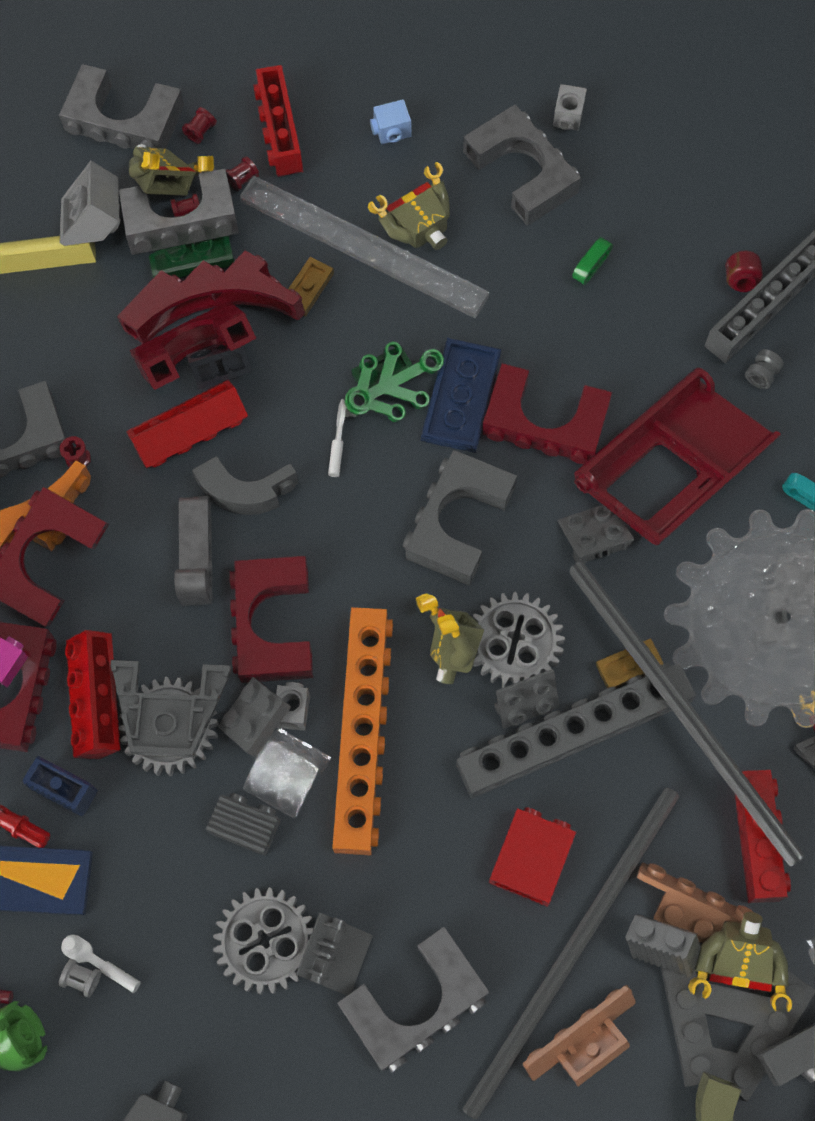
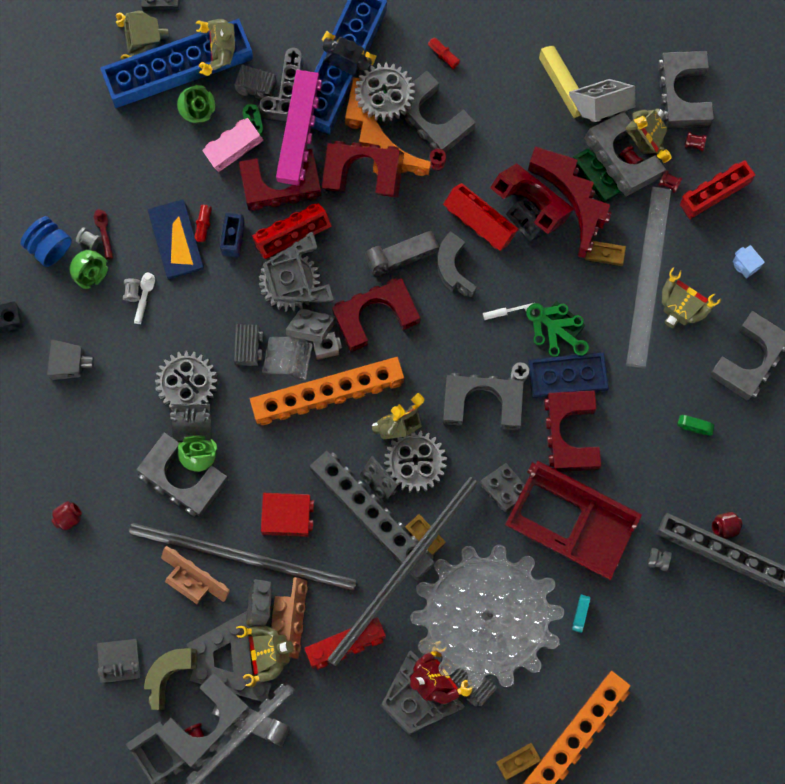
camera: 65 degrees right, 5 degrees up
(389, 961) = (197, 453): none -> bright green cylinder
(430, 449) = (523, 368): none -> light grey bush

